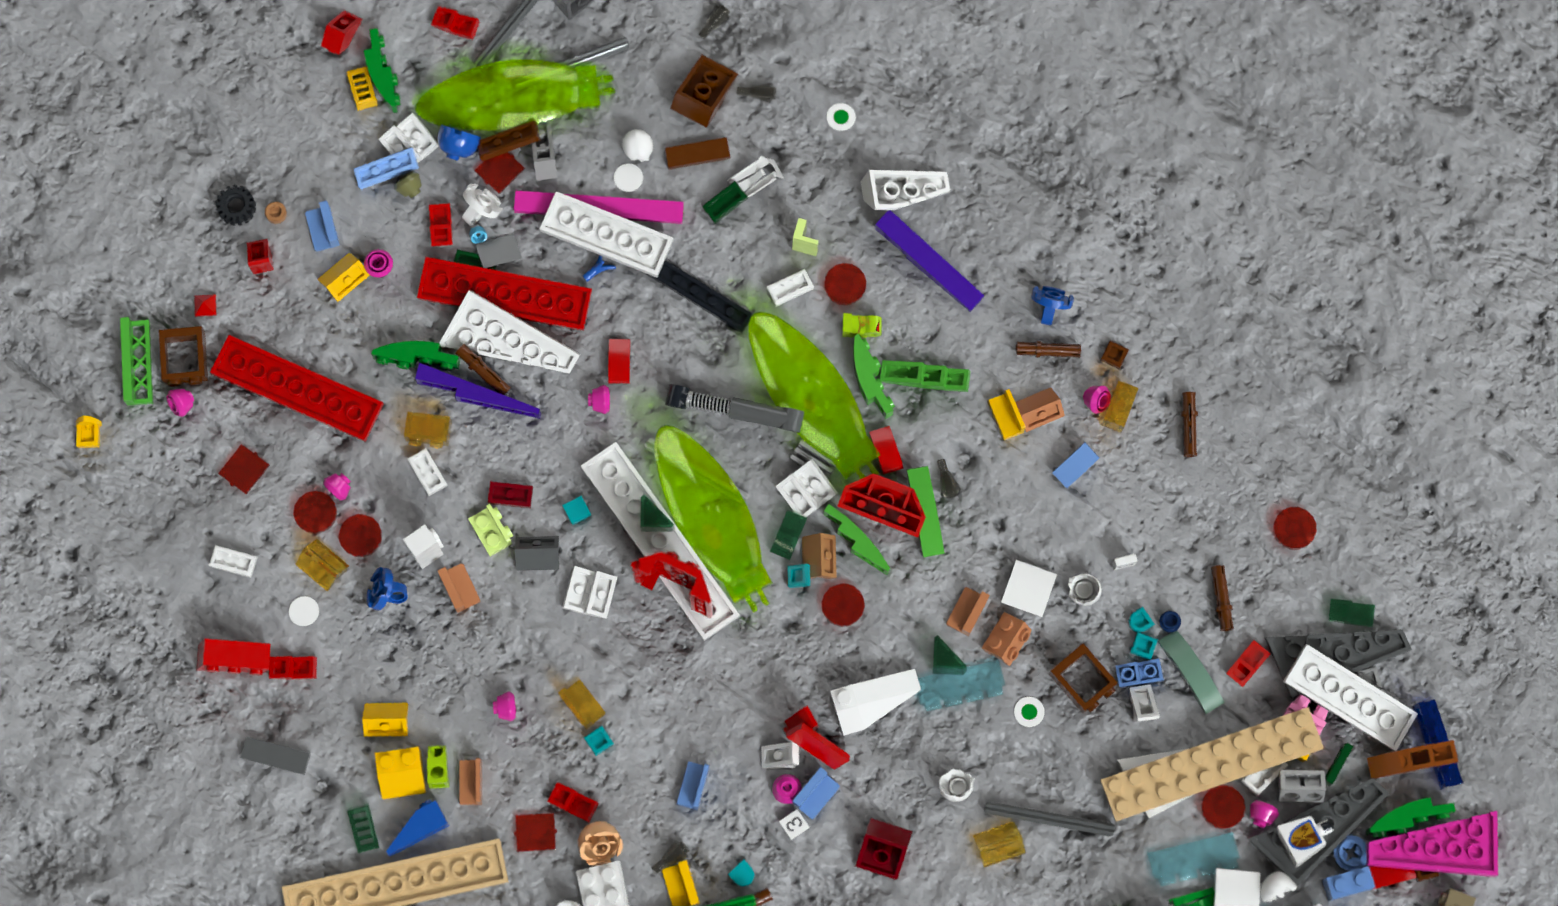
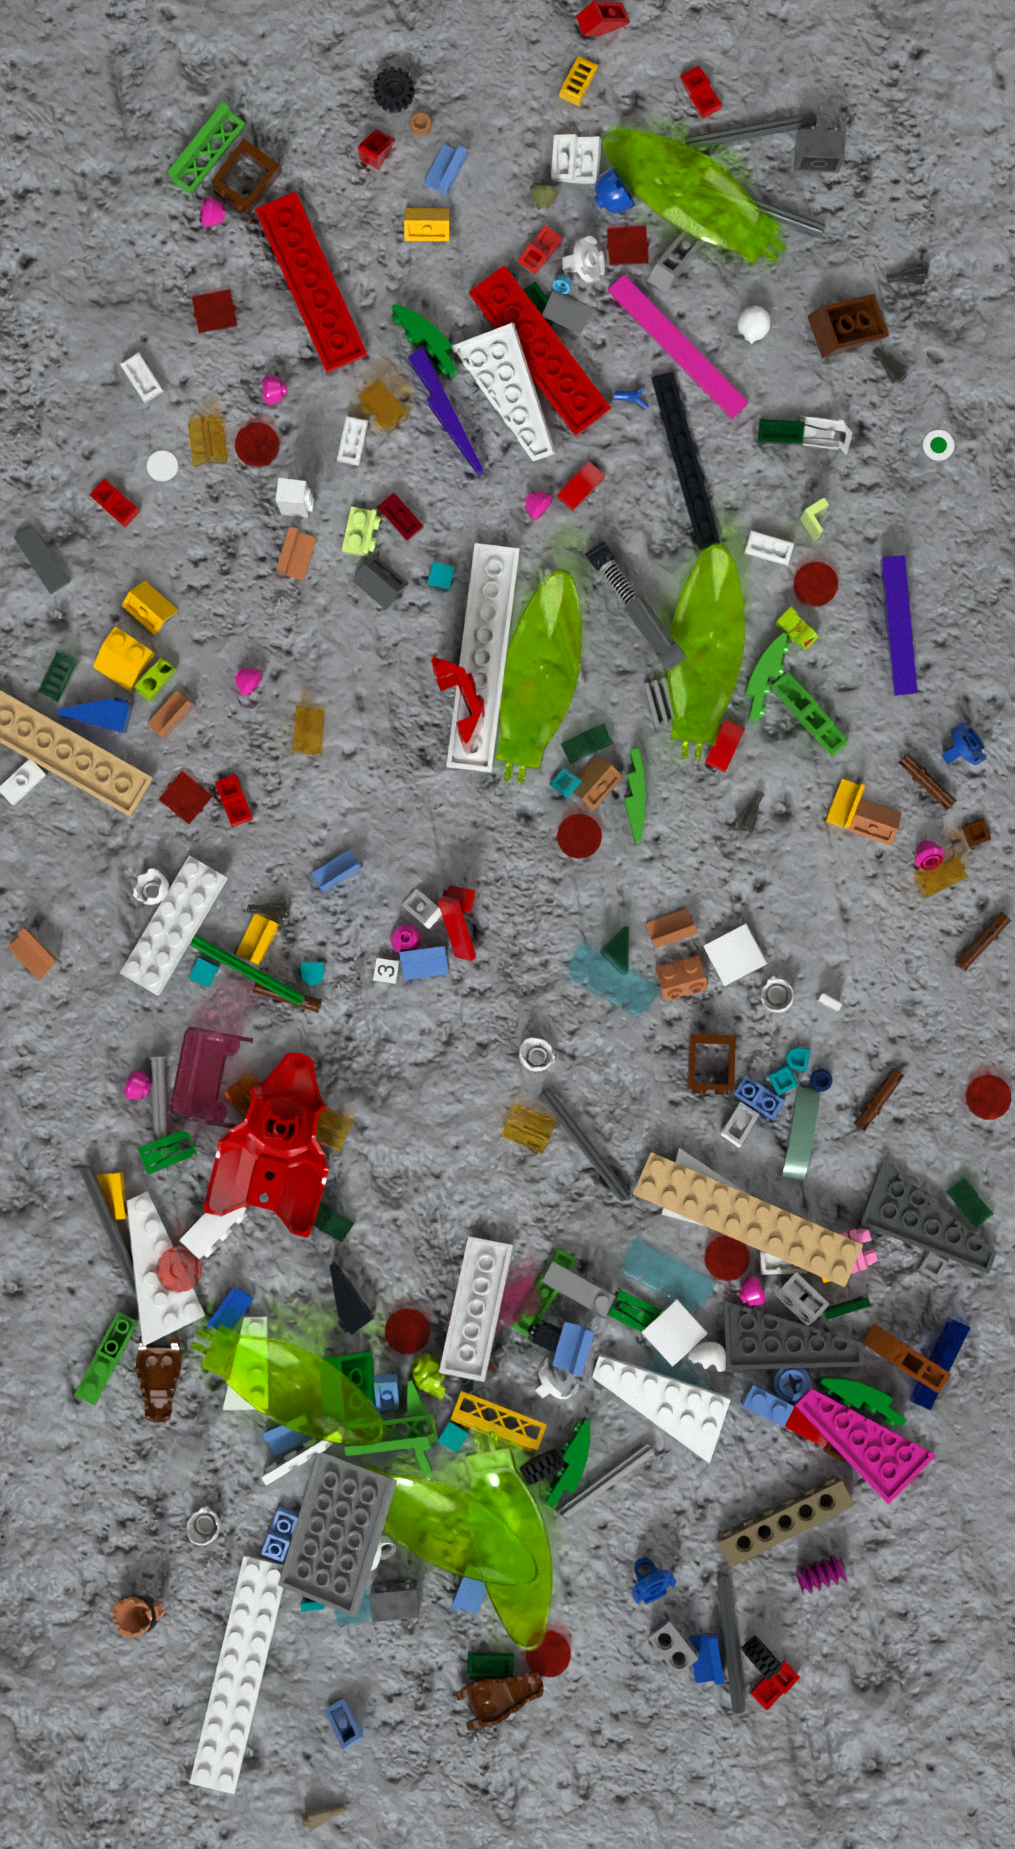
camera: 45 degrees right, 10 degrees up
(88, 432) = (120, 173): yellow tile -> none
(205, 305) = (299, 151): red slope -> none
(233, 657) = (75, 454): red wedge -> none
(315, 512) = (238, 395): clear red tile -> none
(378, 263) = (462, 237): dark pink cone -> none
(382, 75) = (602, 84): green slope -> none
(383, 590) = (236, 505): blue tile -> none
(386, 168) = (538, 164): light blue tile -> none
(487, 374) = (467, 397): reddish brown pin -> none
(508, 140) = (654, 227): reddish brown tile -> none
(589, 592) = (392, 649): white slope -> none
(598, 740) = (296, 771): teal tile -> none
(599, 843) = (223, 850): light nougat cylinder -> none
(606, 234) = (662, 374): white plate -> none
(628, 177) = (723, 343): white sticker -> none
(653, 519) = (491, 634): clear green slope -> none
(697, 153) = (796, 372): reddish brown tile -> none
(806, 489) = (634, 720): white slope -> none
(870, 700) = (528, 929): white wedge -> none
(884, 503) = (682, 786): red wedge -> none
(884, 848) = (436, 1051): dark red slope -> none
(901, 188) = (929, 546): white wedge -> none
(930, 534) = (710, 821): bright green slope -> none
(1029, 711) = (646, 1049): white sticker -> none
(1075, 465) = (862, 892): medium blue slope -> none
(1248, 663) = (851, 1167): red slope -> none
(1303, 838) = (764, 1339): torso -> none
(1350, 697) = (904, 1266): white plate -> none

